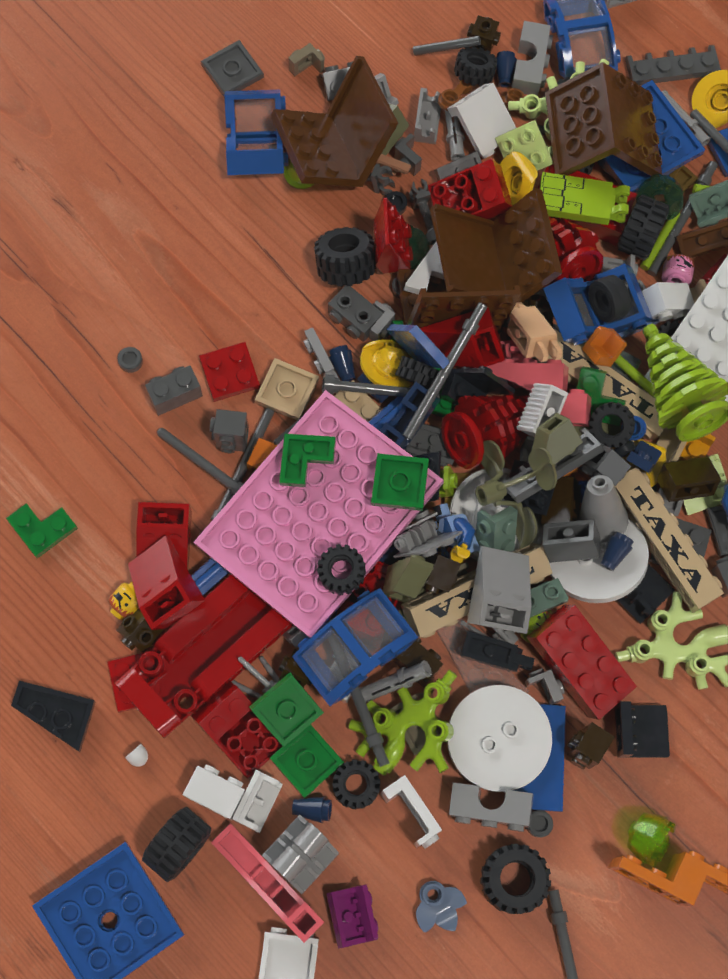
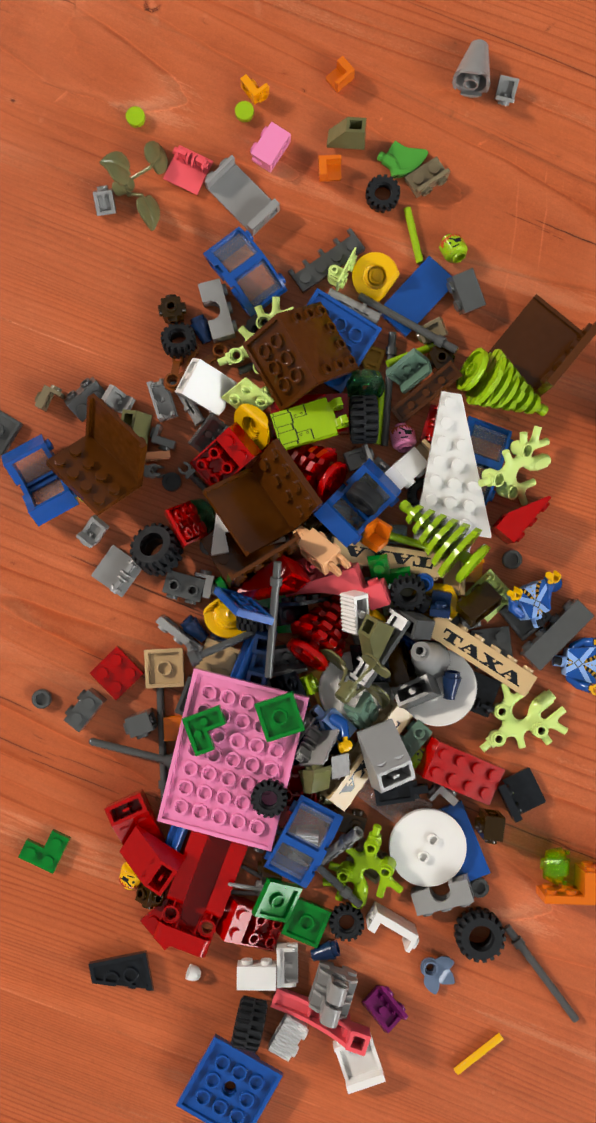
camera: 20 degrees left, 15 degrees up
(214, 891) = (287, 1037): none -> white brick
(283, 211) = (92, 532): none -> light grey bracket
(287, 265) = (116, 571): none -> light grey hinge
(447, 45) = (148, 333): dark grey bar -> none
(683, 76) = (338, 276): none -> yellowish green hinge

